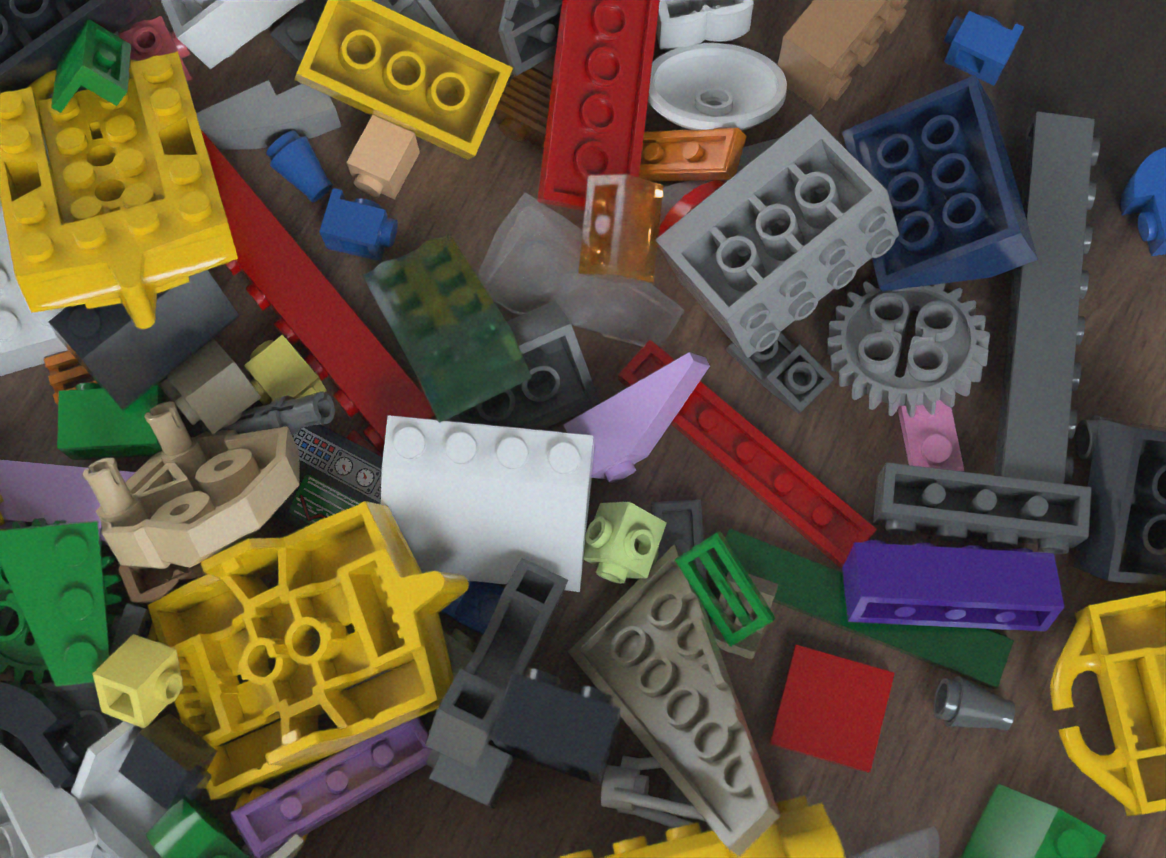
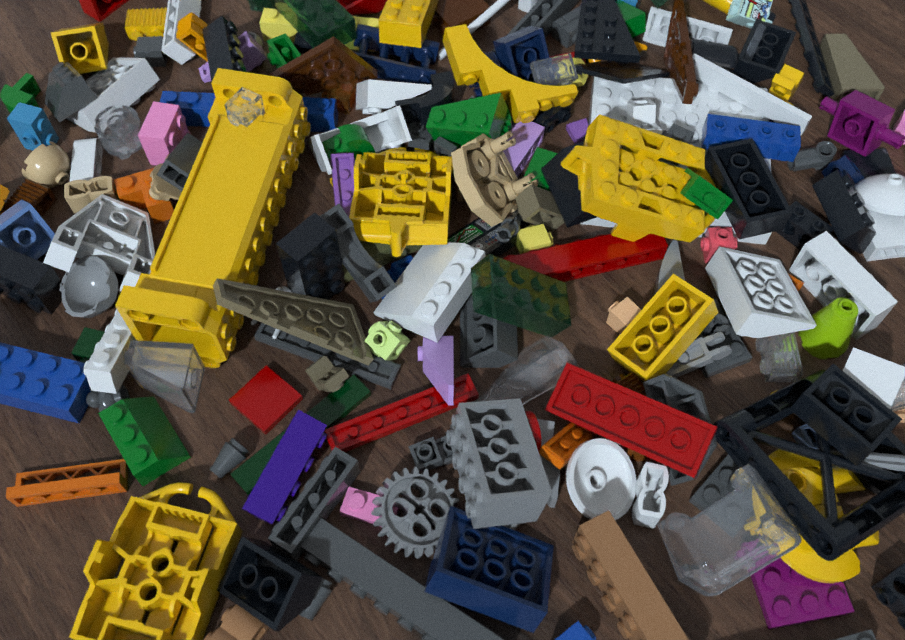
camera: 110 degrees right, 15 degrees down
(138, 680) = (420, 135): light yellow brick -> none
(169, 762) = (383, 138): black brick -> none
(298, 164) = (637, 285): blue cone -> none
(357, 227) = (595, 295): blue brick -> none
(620, 228) = (536, 388): clear orange brick -> none
(742, 579) = (338, 364): green tile -> none

